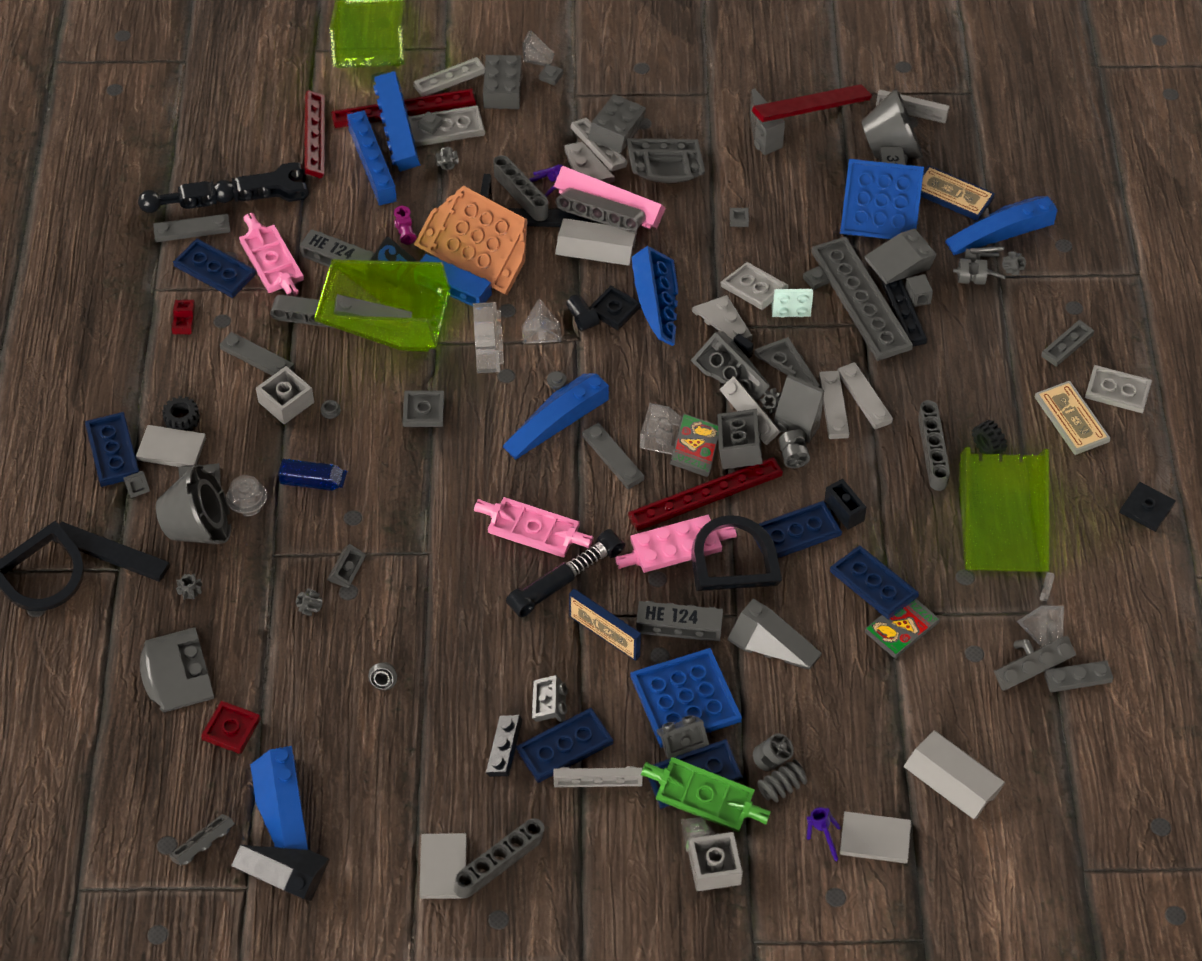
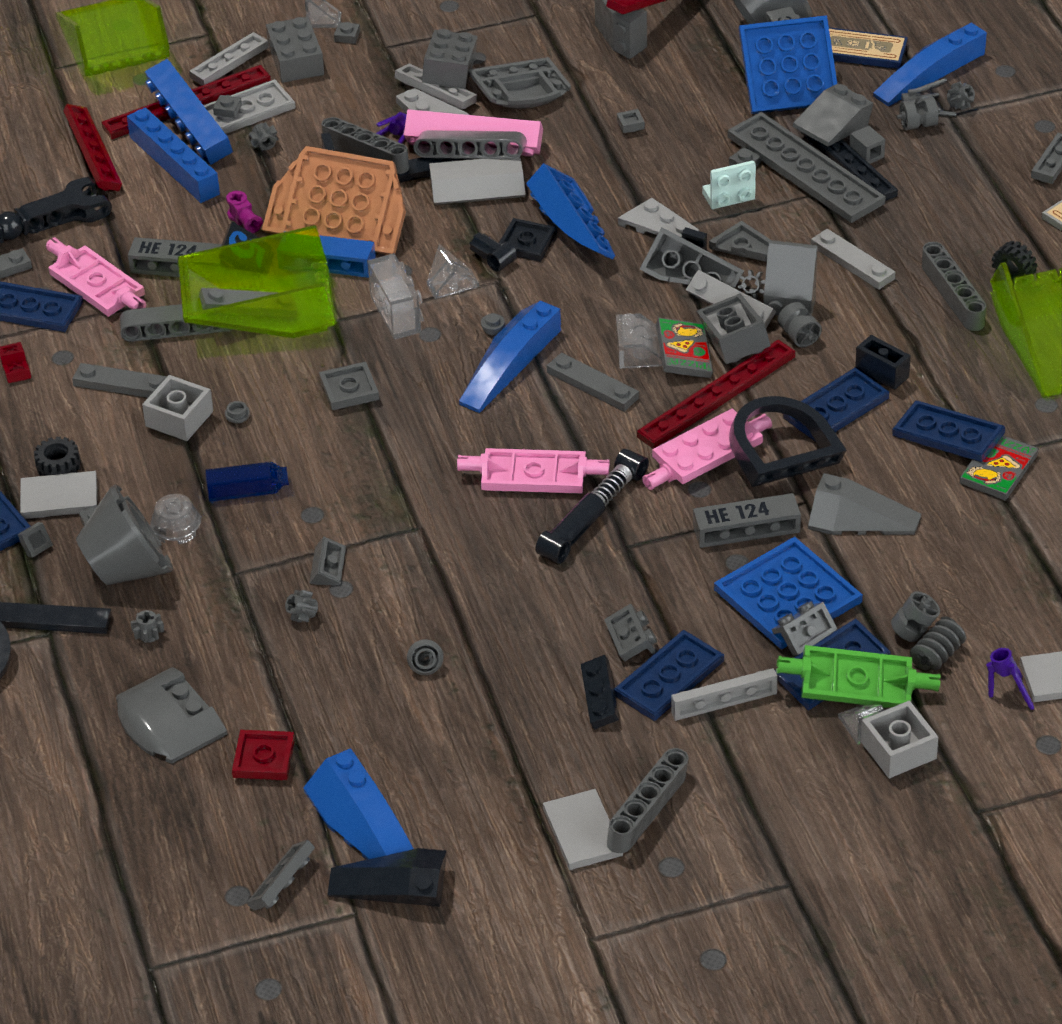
camera: 15 degrees left, 10 degrees down
(604, 624) = (664, 540): tile -> none
(753, 285) = (677, 181): light grey tile -> none
(834, 405) = (829, 284): light grey plate -> none

